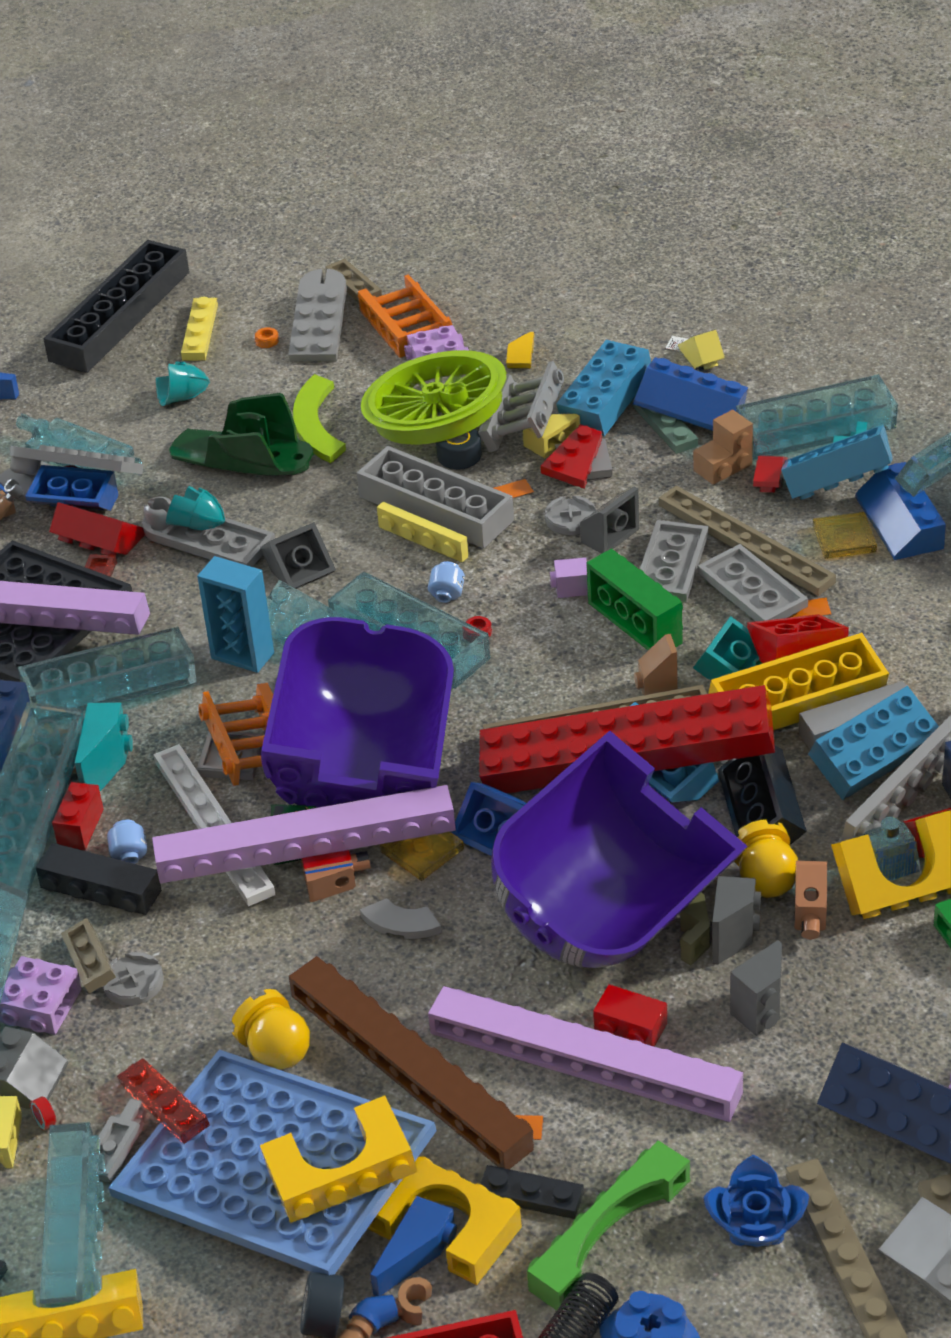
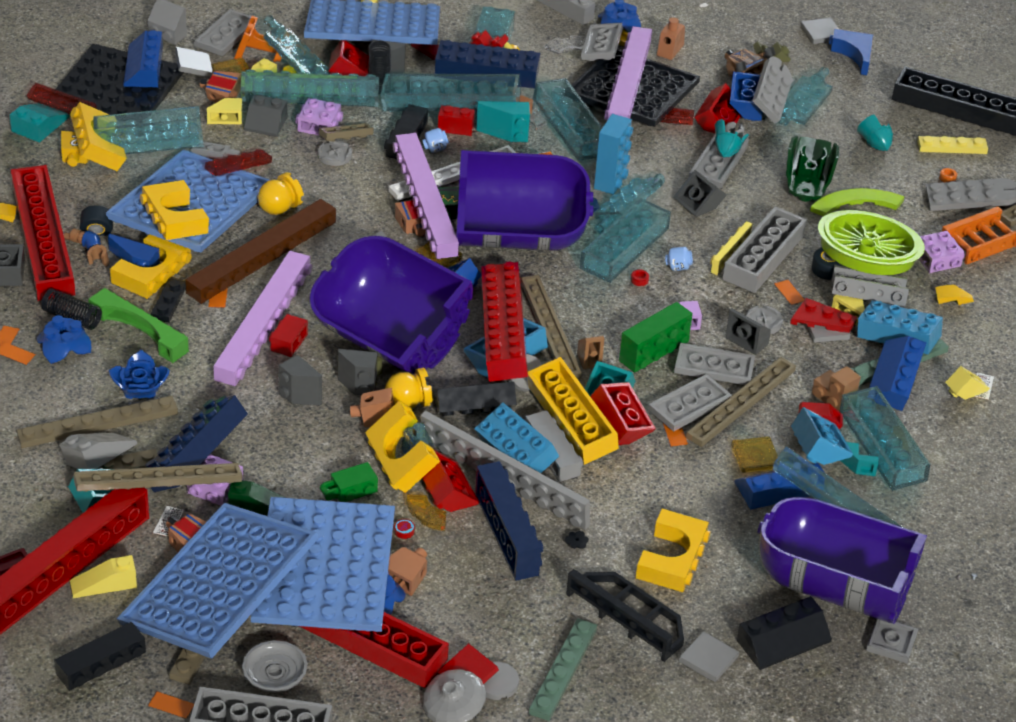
camera: 80 degrees right, 0 degrees up
(43, 1113) = (236, 125): red tile -> none

